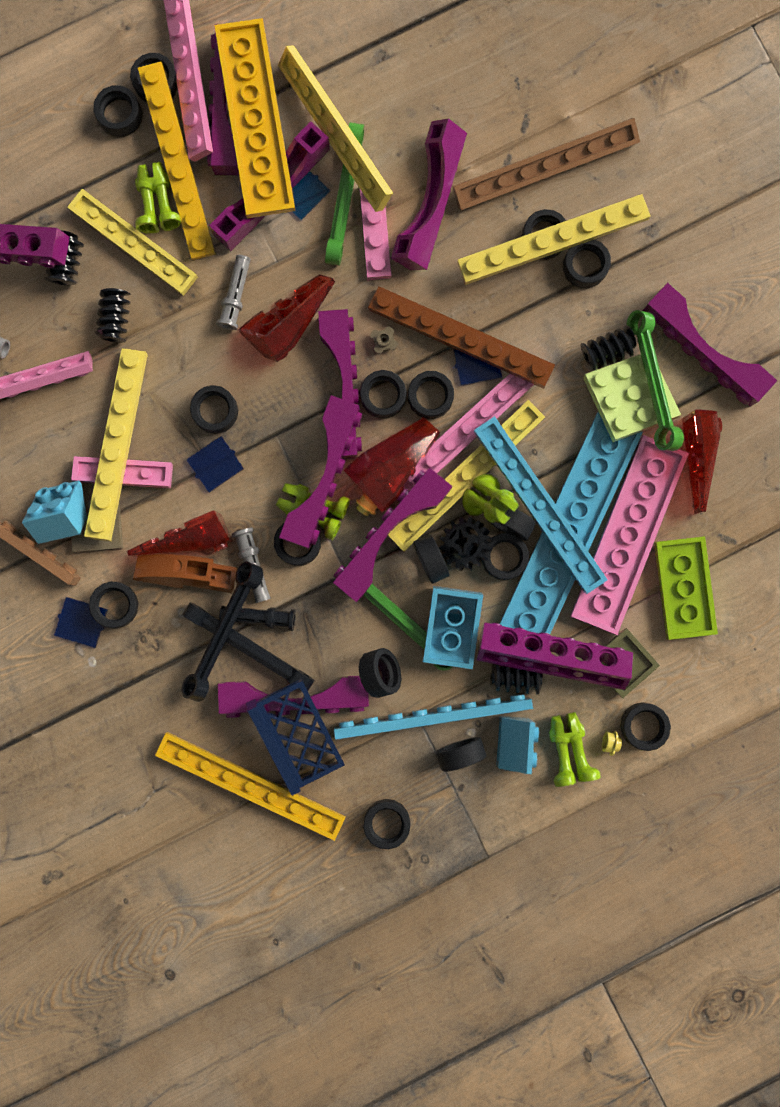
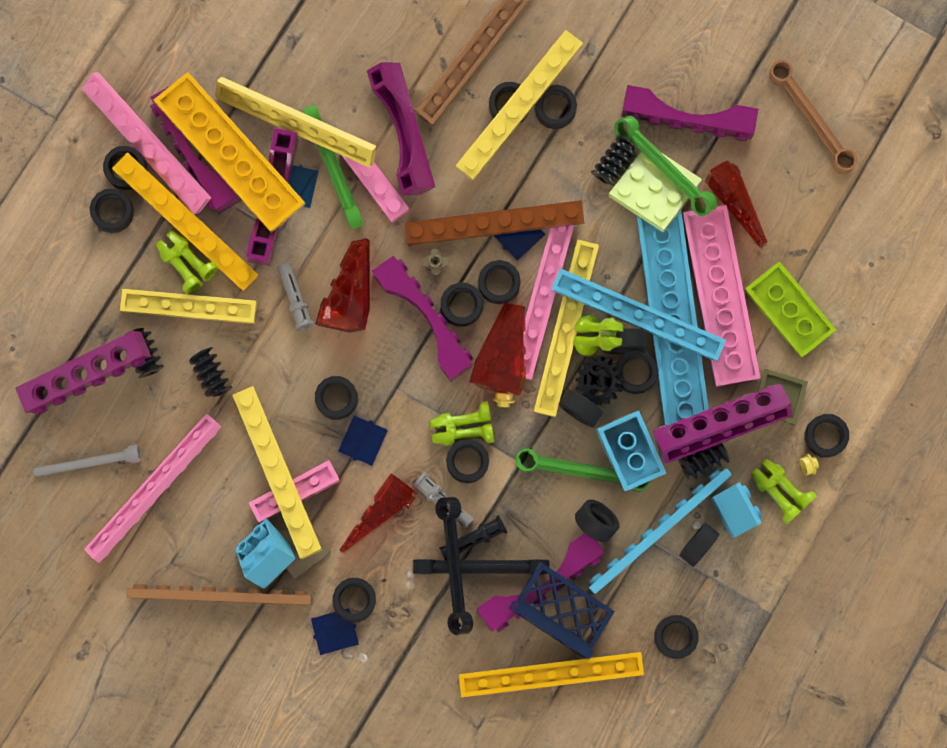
camera: 35 degrees left, 5 degrees down
(184, 570) = (391, 538): dark orange slope -> none
(303, 521) = (444, 347): magenta arch -> none
(425, 495) = (533, 456): magenta arch -> none

